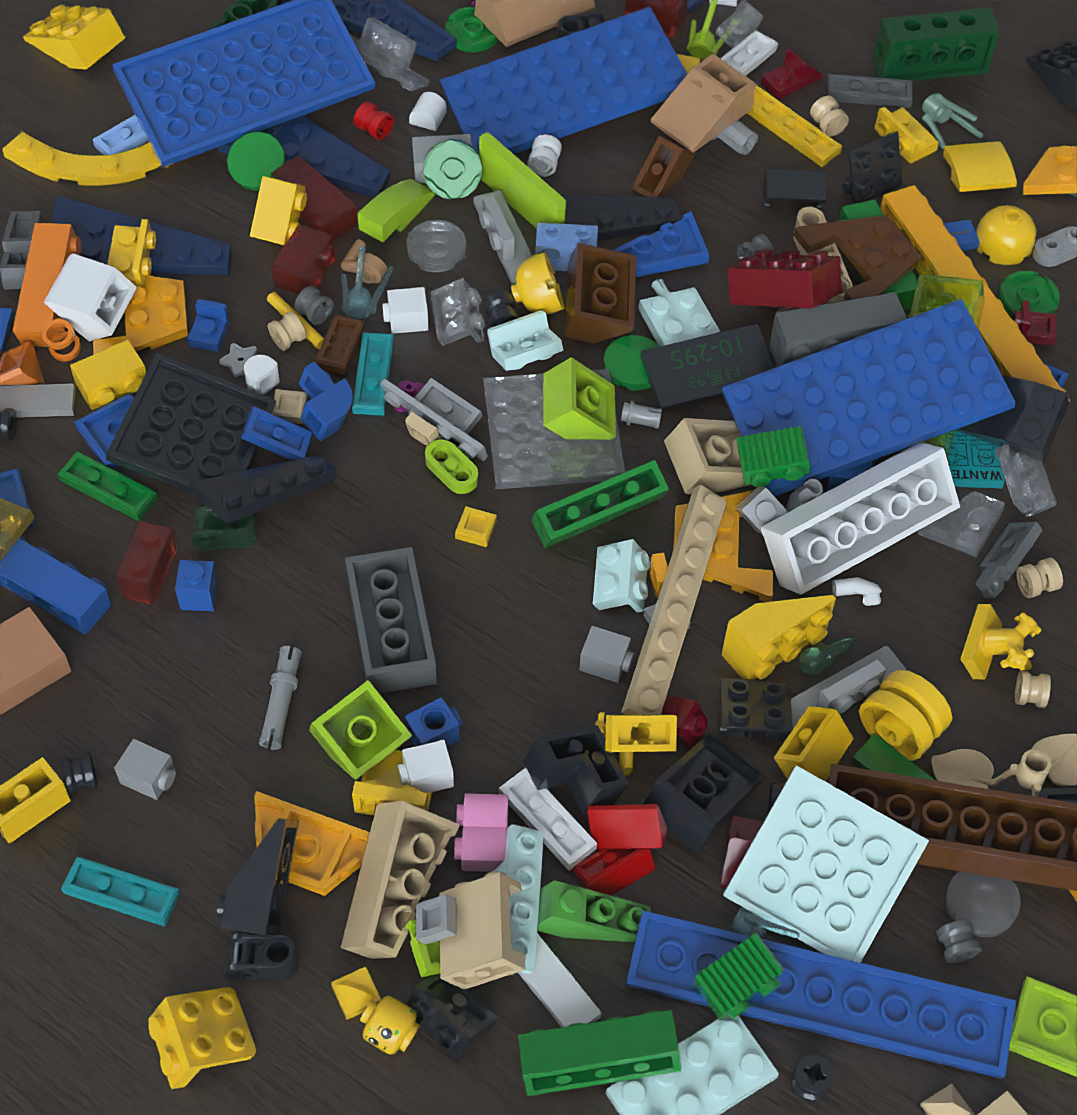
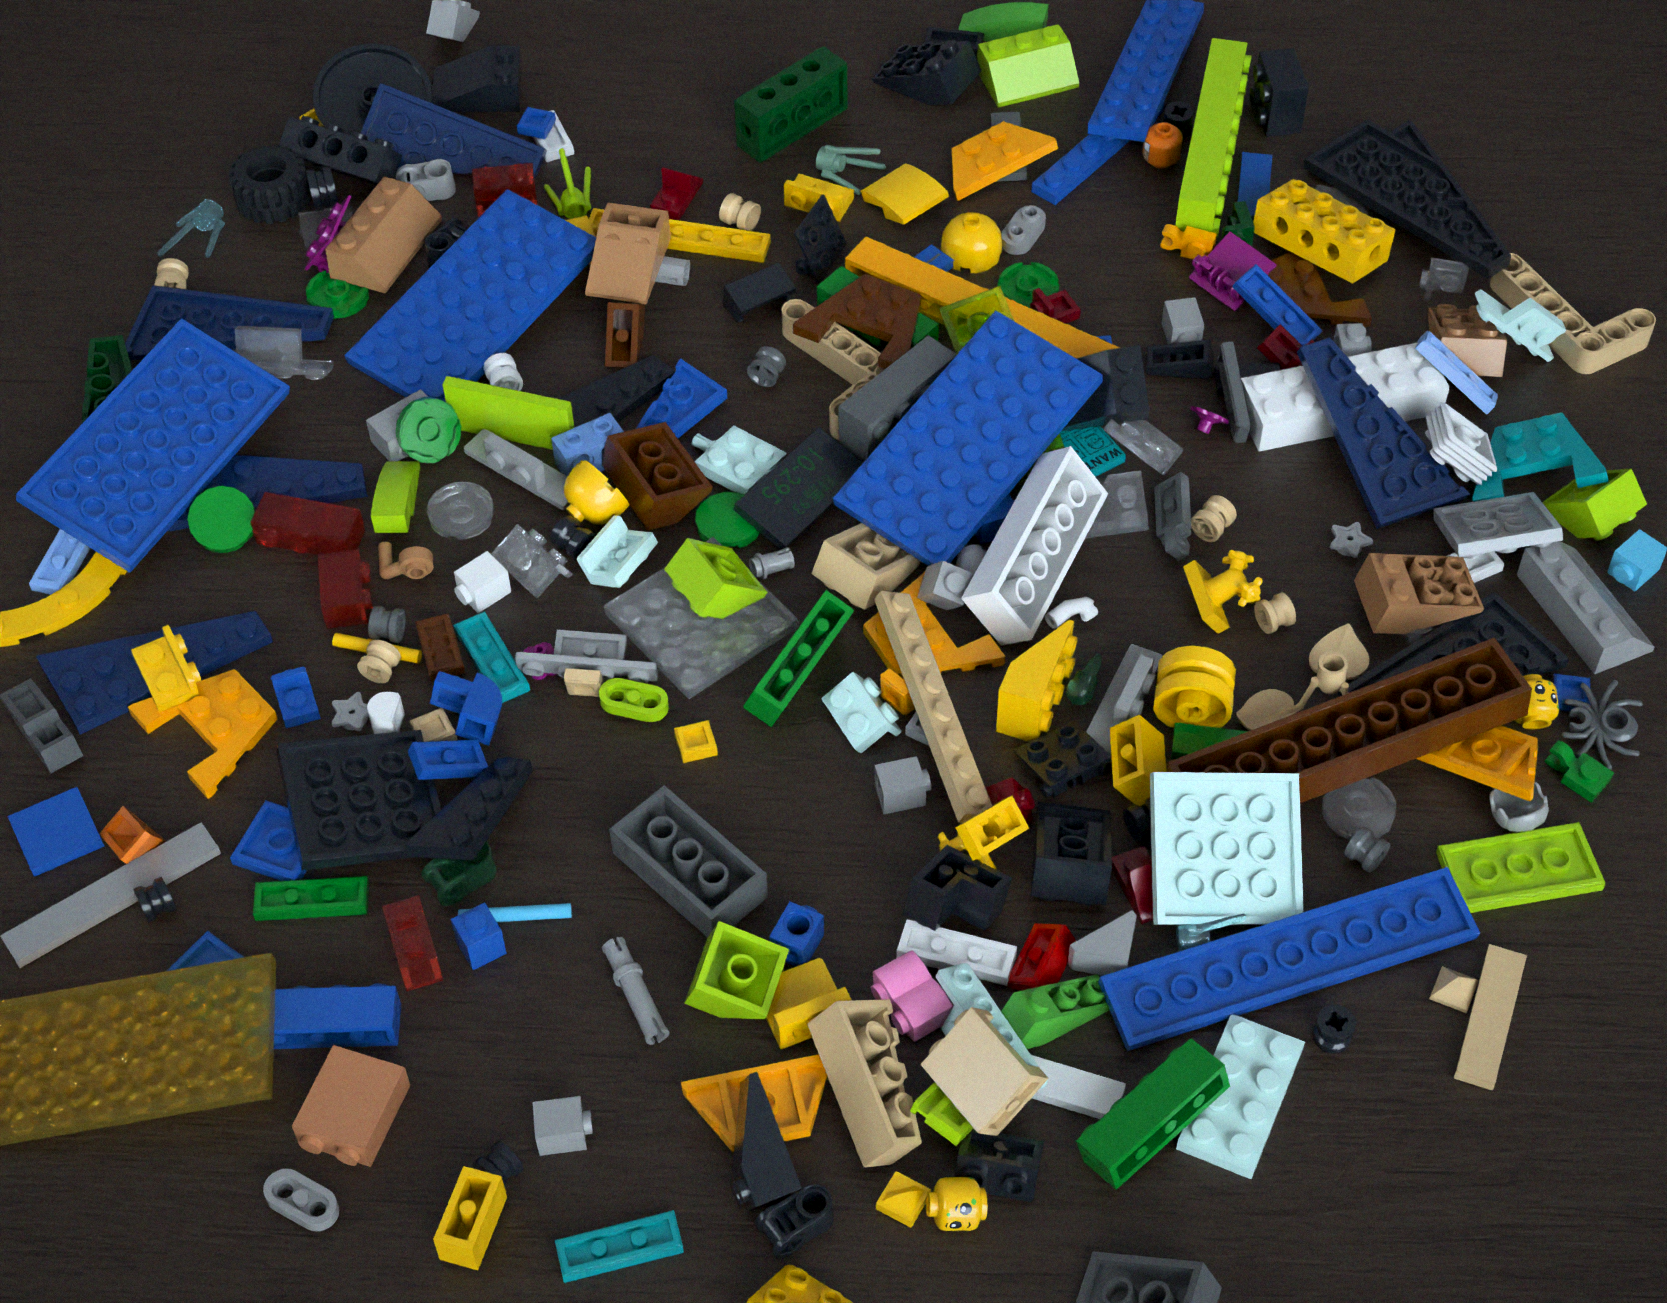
camera: 30 degrees left, 5 degrees down
(34, 319) = (105, 749): orange hinge -> none
(90, 296) = (161, 729): white slope -> none
(109, 374) = (233, 794): yellow brick -> none
(248, 587) = (529, 912): none -> medium azure bar
(278, 210) = (288, 553): yellow brick -> none
(358, 302) = (428, 599): clear light blue plant -> none
(375, 121) = (311, 424): red wheel -> none
(427, 767) = (823, 967): white brick -> none
(428, 111) = (355, 389): white brick -> none
(436, 919) = (939, 1084): light grey plate -> none
(627, 826) = (1033, 916): red slope -> none
(671, 890) = (1104, 949): none -> light grey slope
(739, 977) = (1222, 980): green brick -> none
(740, 24) = (596, 168): clear bracket -> none
(750, 52) = (624, 186): white tile -> none
(773, 456) = (928, 531): green brick -> none
(785, 279) = (820, 374): dark red brick -> none
(811, 490) = (980, 544): light grey hand -> none
(870, 90) = (756, 173): dark grey tile -> none

